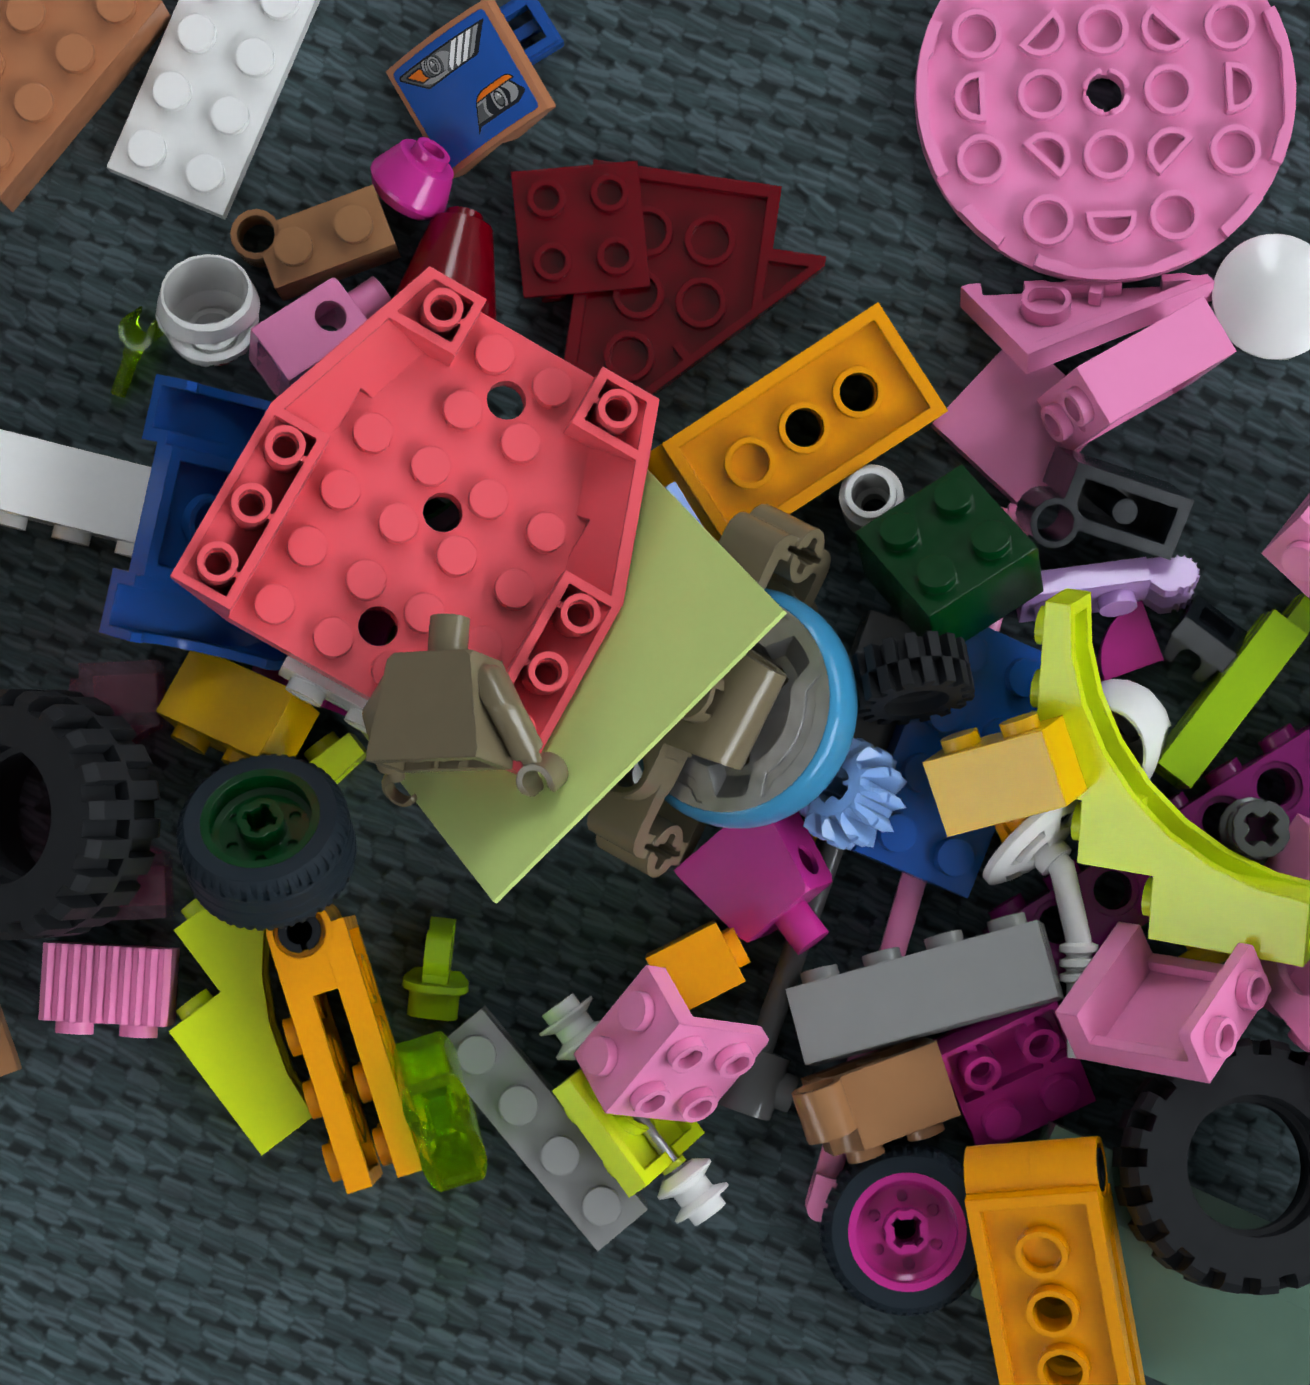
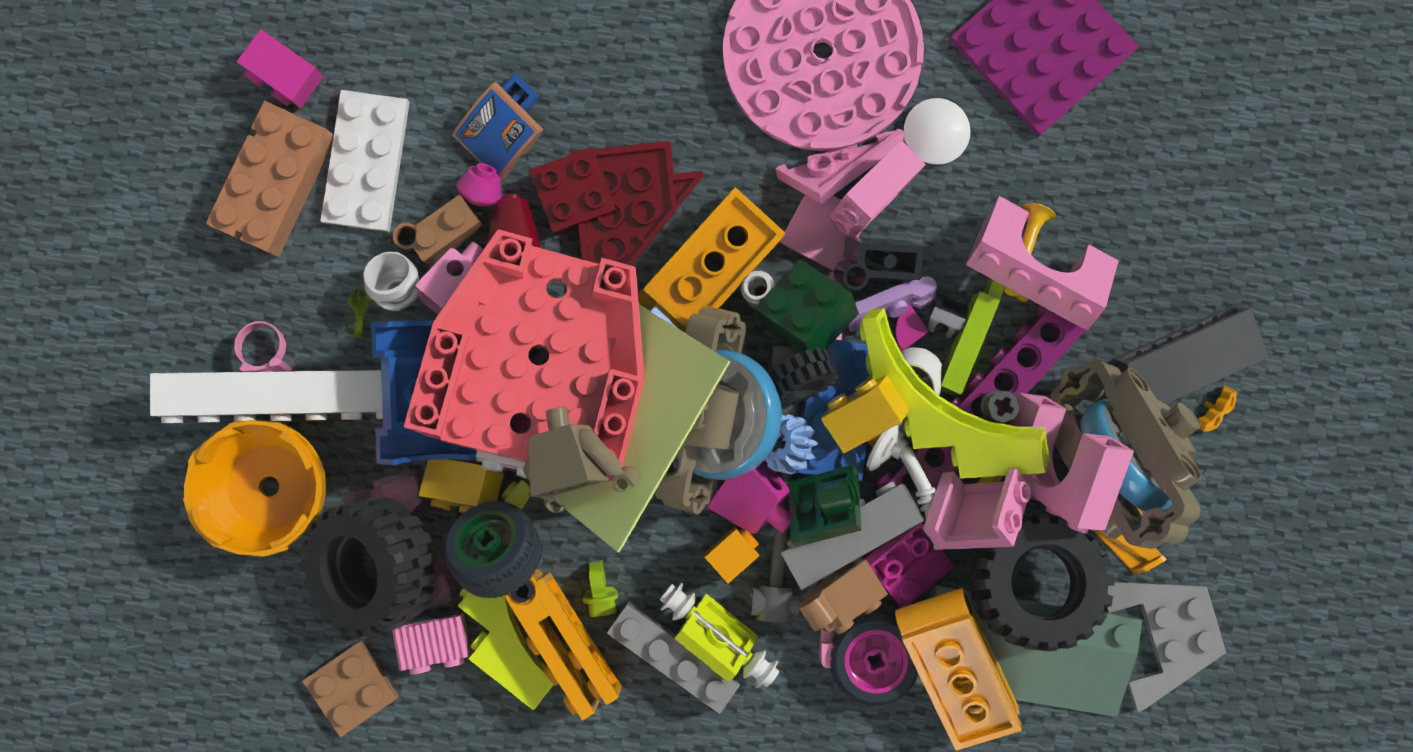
camera: 20 degrees left, 0 degrees up
(439, 1111) = (619, 664): clear neon green brick -> none
(661, 1060) = (727, 608): bright pink bracket -> none
(888, 923) = (825, 506): none -> dark green plate

